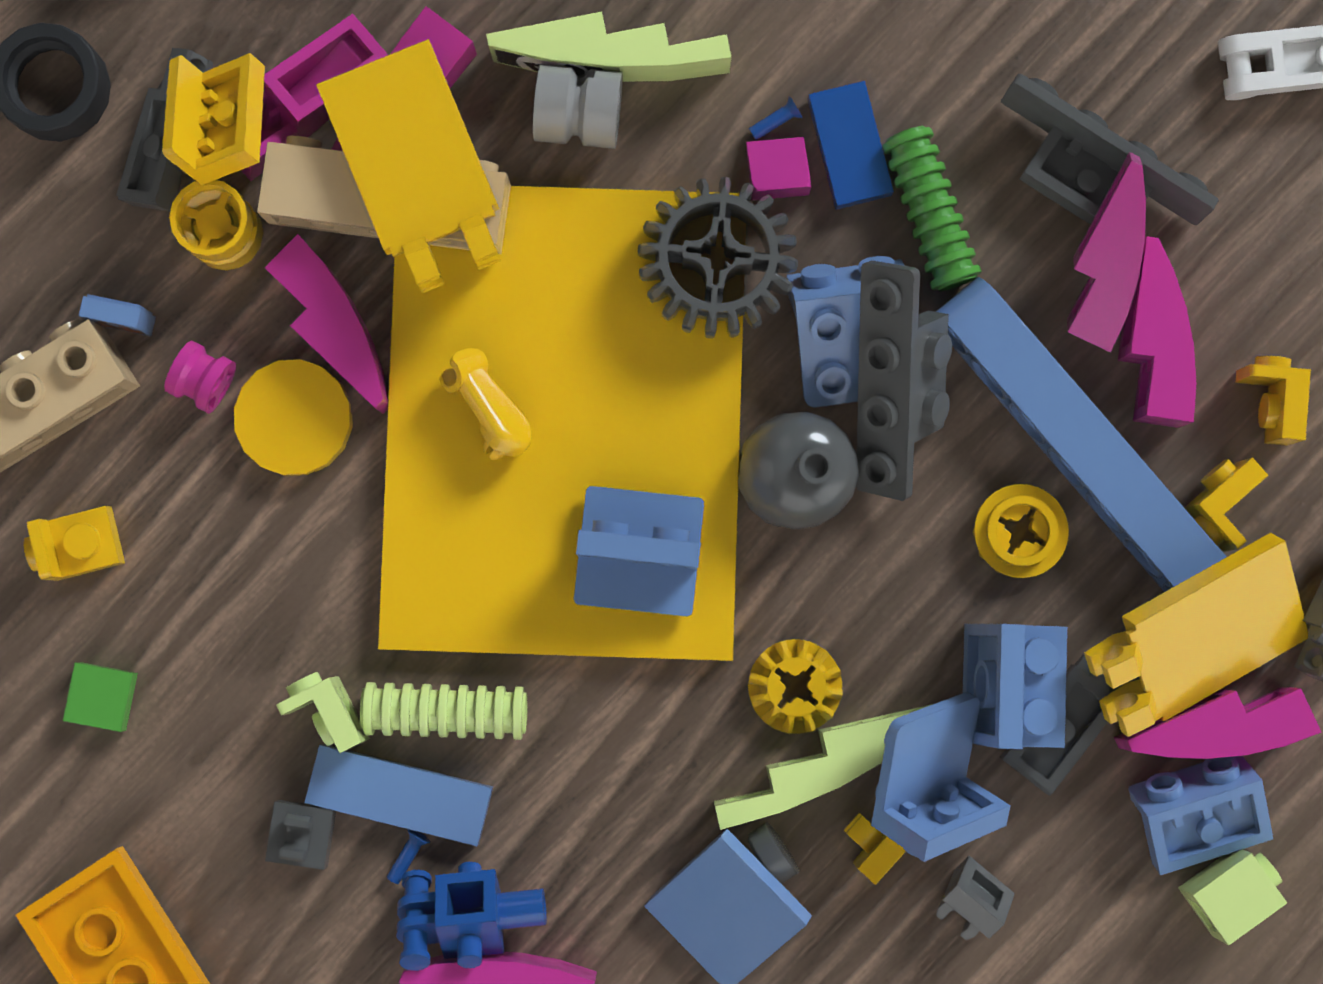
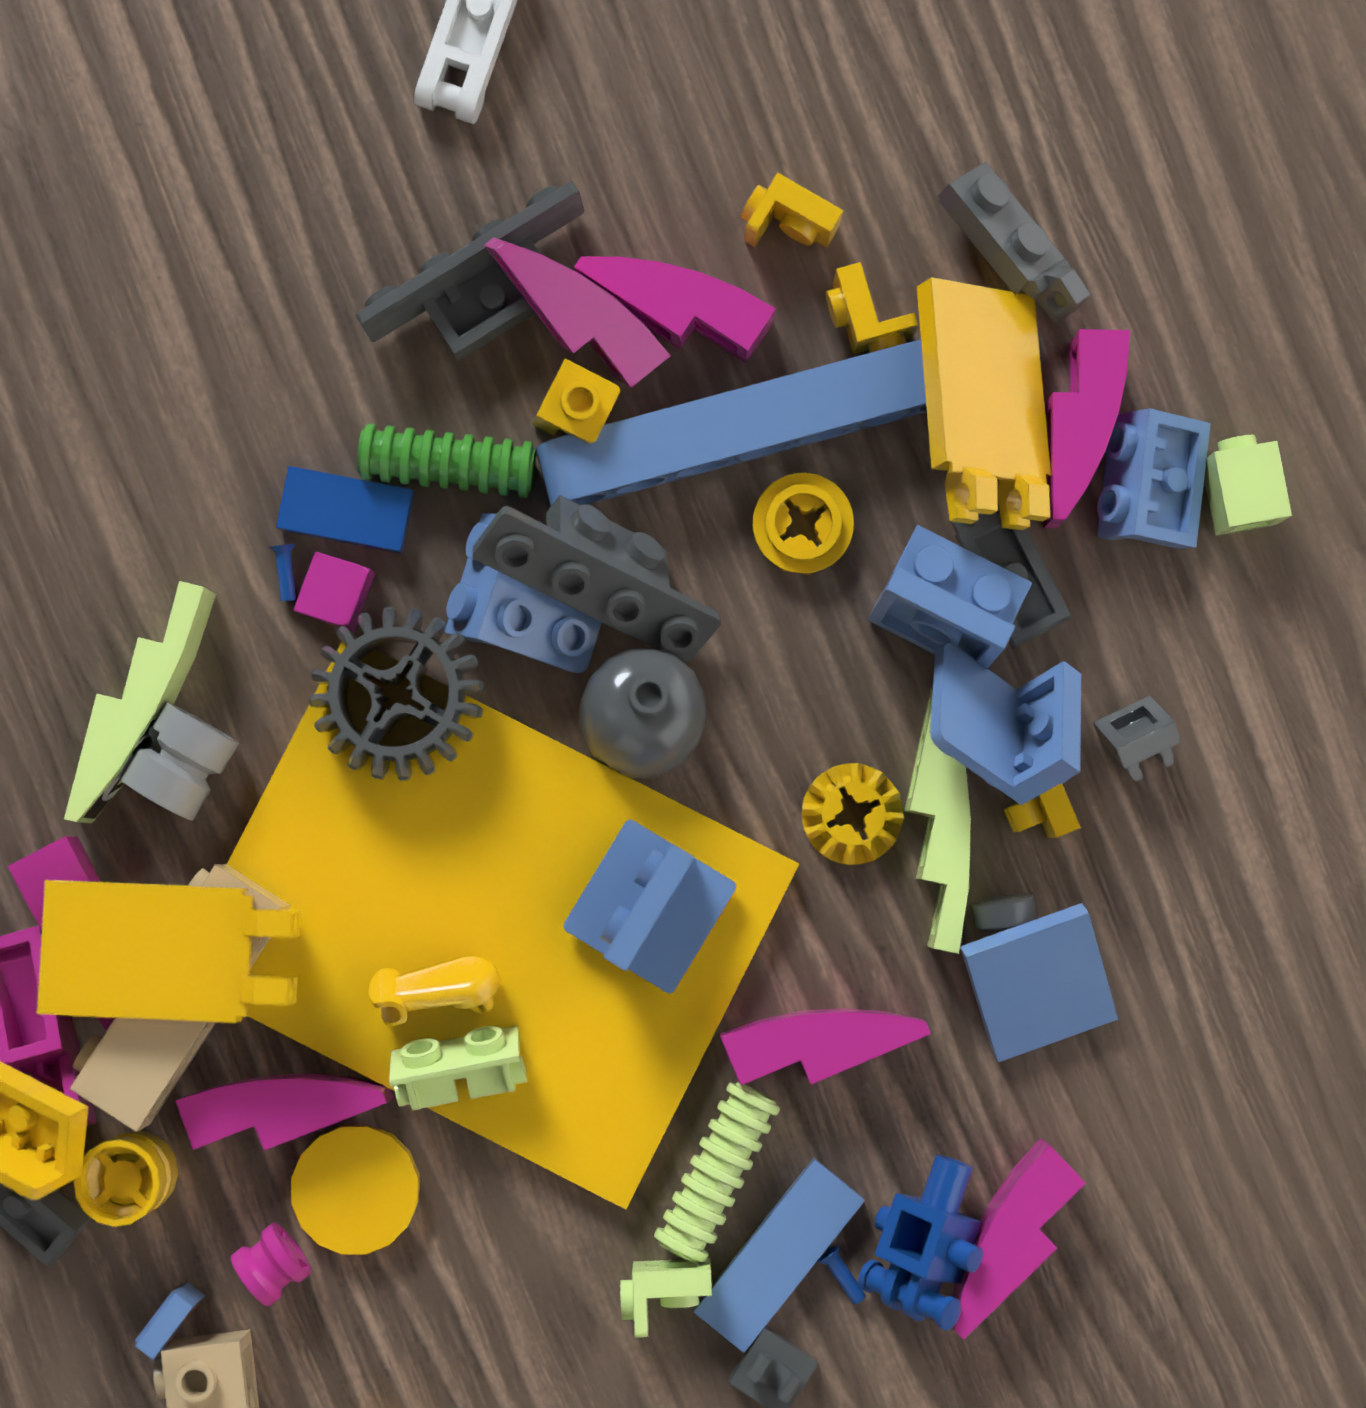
camera: 65 degrees left, 0 degrees up
(418, 429) = (427, 1068): none -> yellowish green hinge
(593, 745) = (820, 1039): none -> dark pink slope
(1032, 292) = (577, 403): none -> yellow bracket

